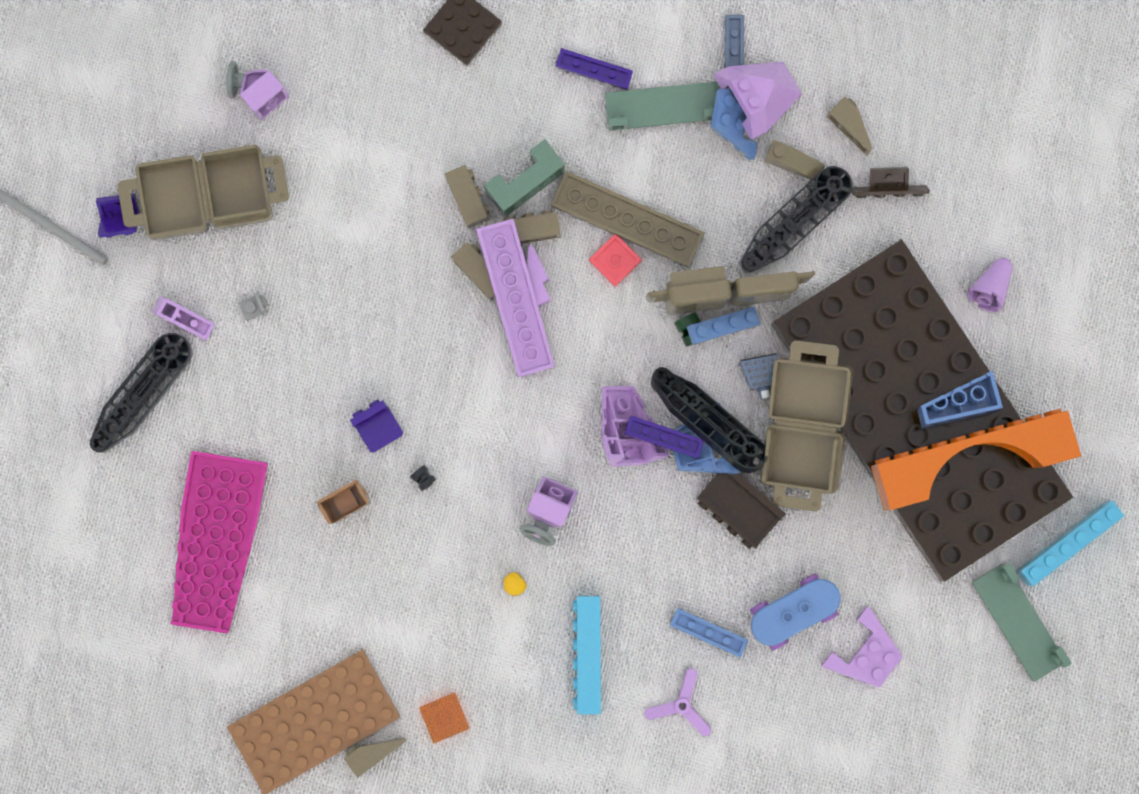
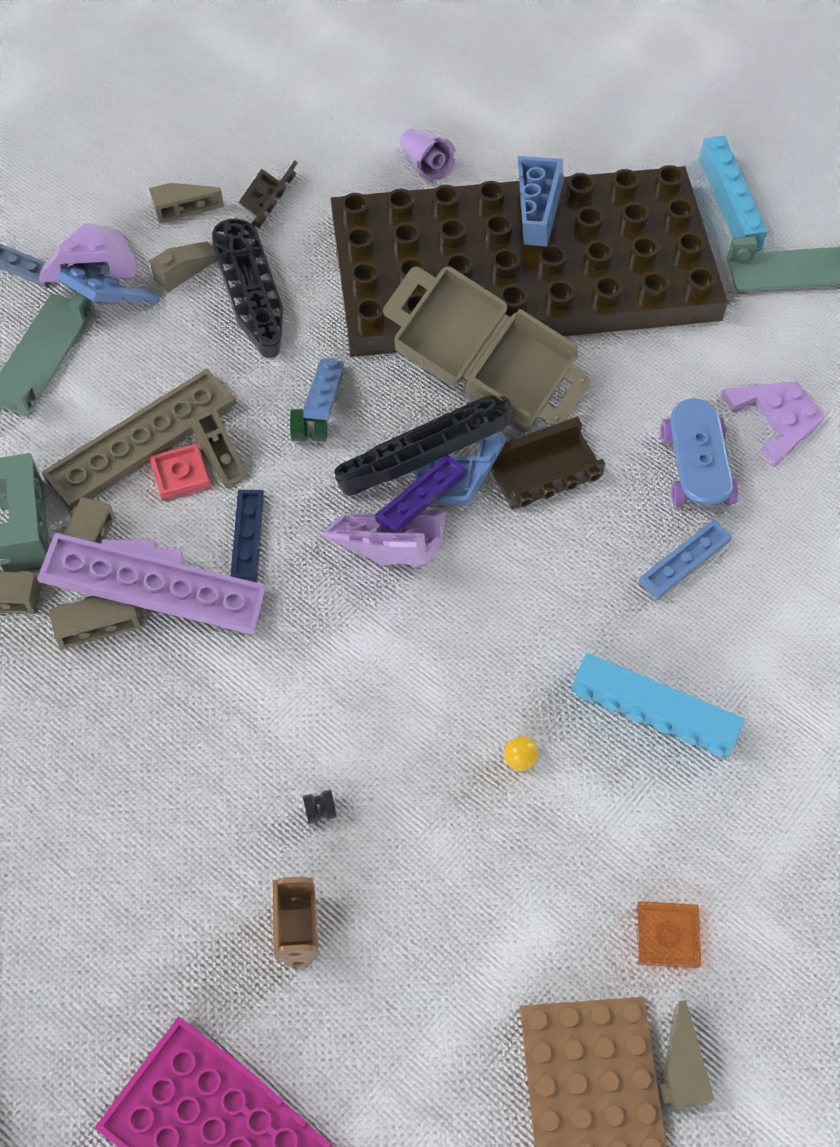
camera: 65 degrees left, 25 degrees down
(376, 425) = (214, 836): dark purple bracket -> none
(549, 509) = (443, 662): lavender piece -> none
(588, 332) = (247, 535): none -> dark blue tile
(642, 276) = (218, 447): none -> dark tan slope
(673, 707) = (767, 637): lavender piece -> none
(710, 290) = (283, 357): dark tan piece -> none
(759, 373) = (399, 382): sand blue torso -> none
(1038, 441) = (599, 259): orange arch -> none

